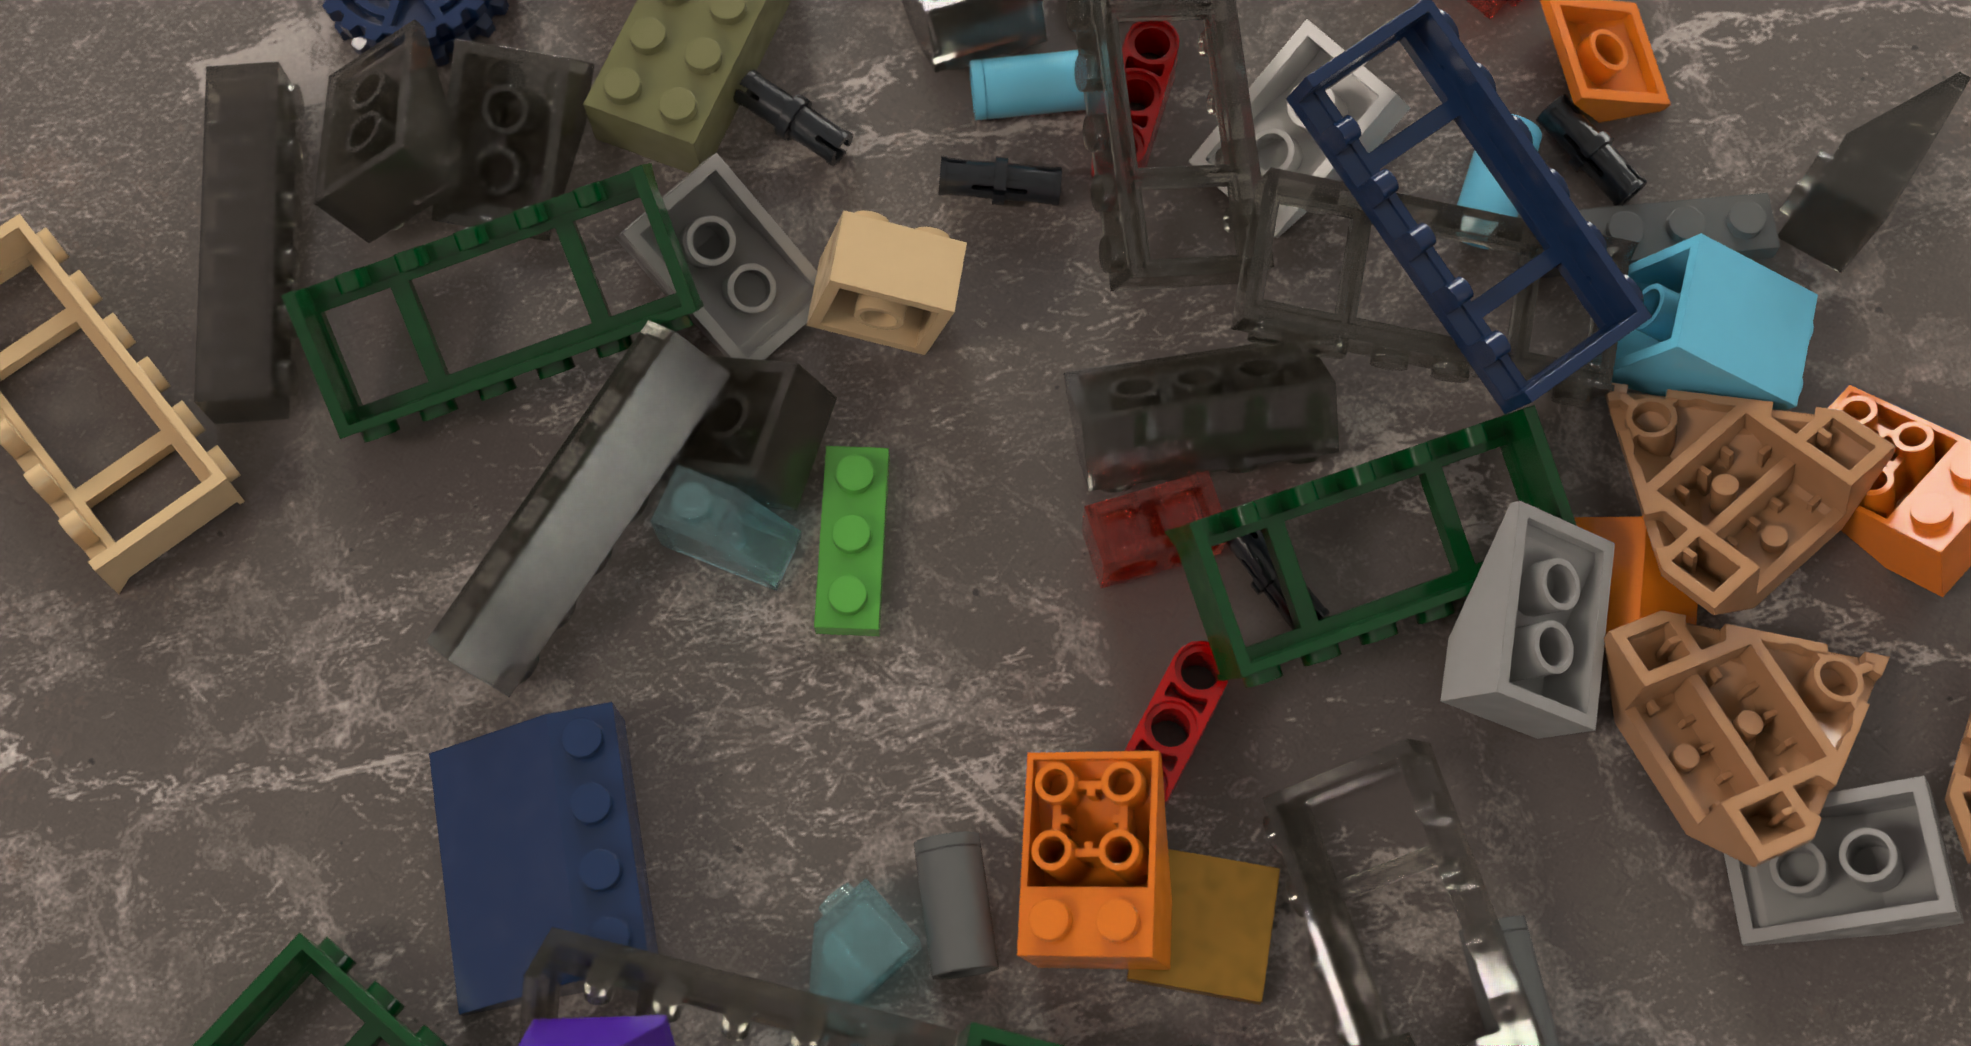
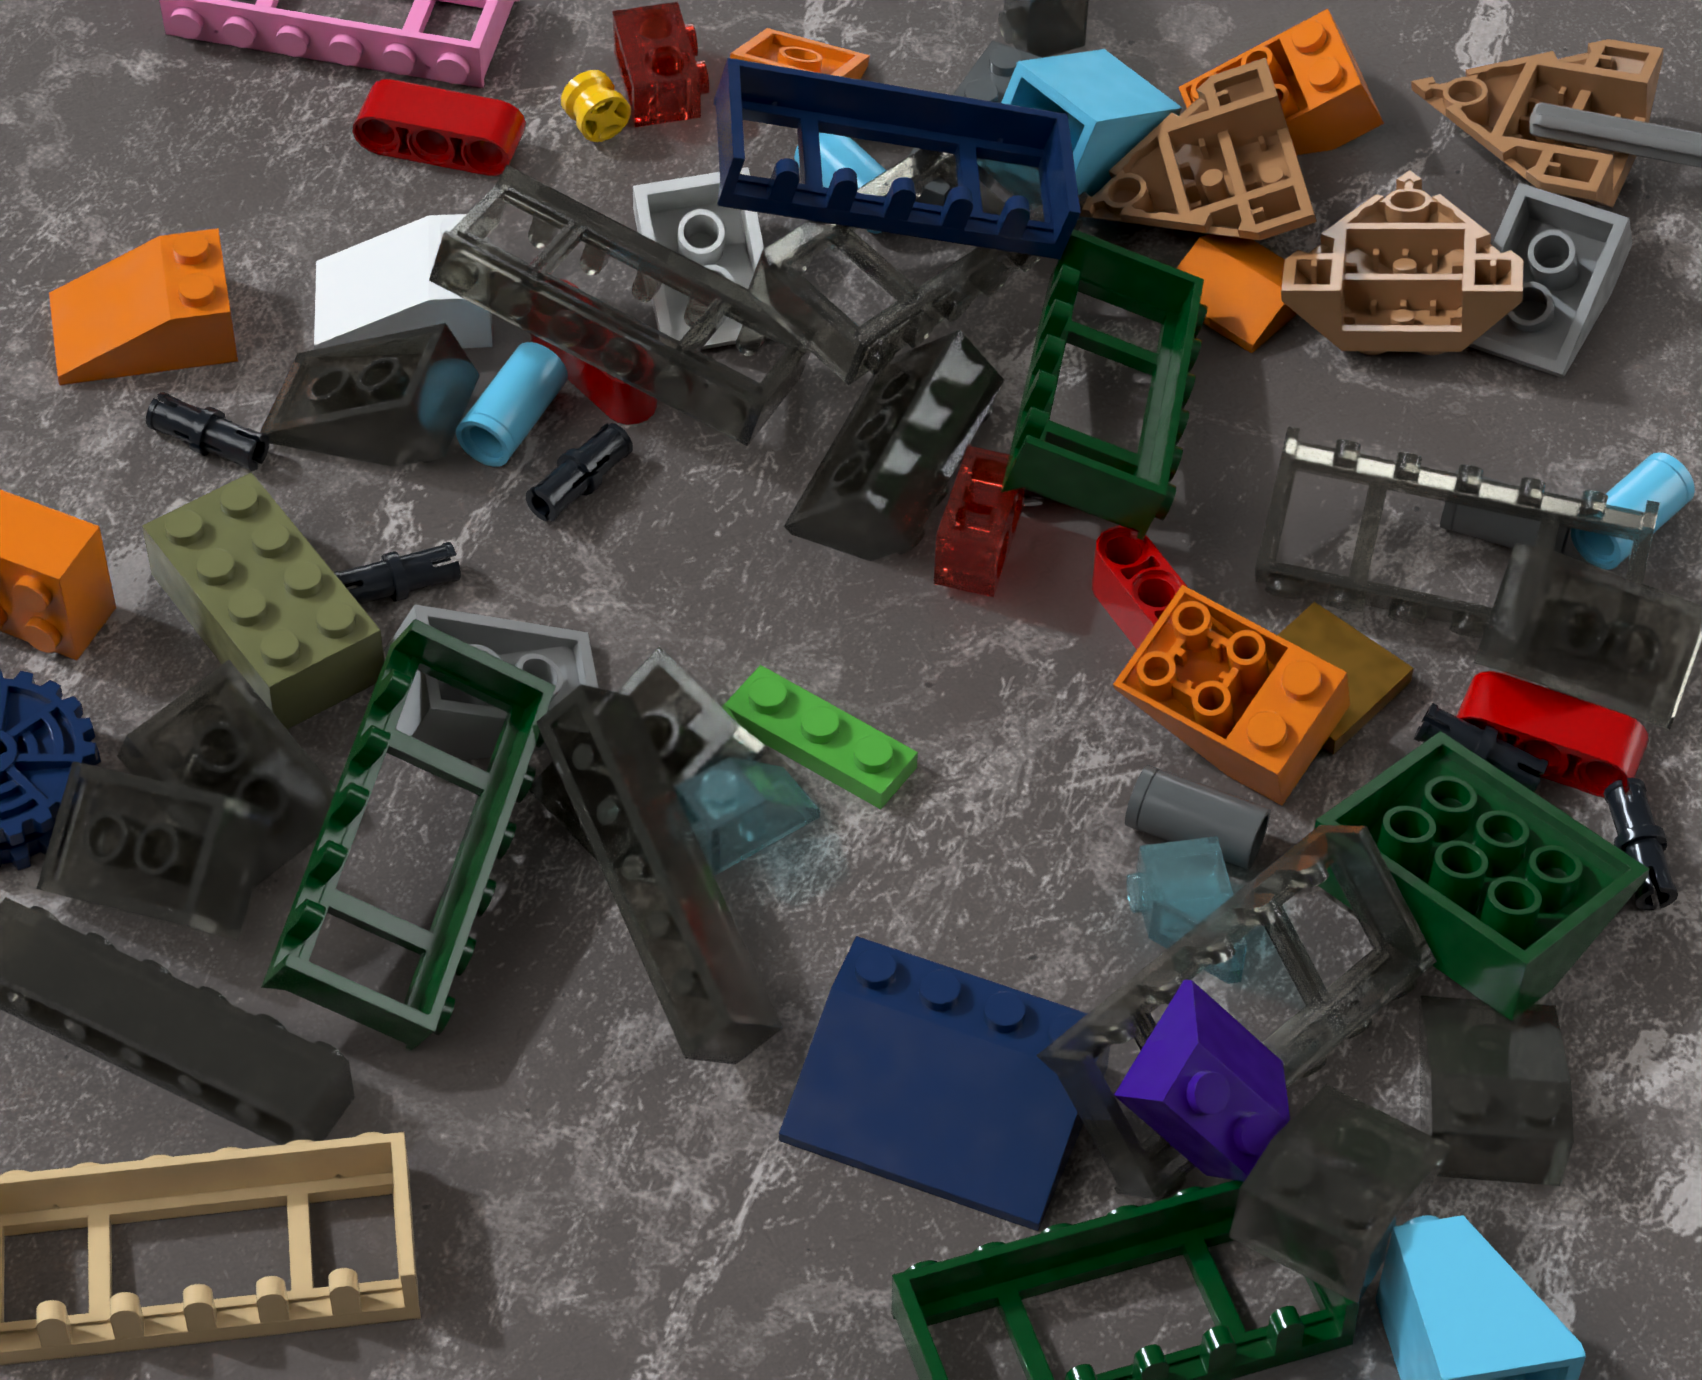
camera: 60 degrees left, 20 degrees down
(886, 282) = (627, 566): tan brick -> none
(1533, 628) = (1247, 339): light grey slope -> none

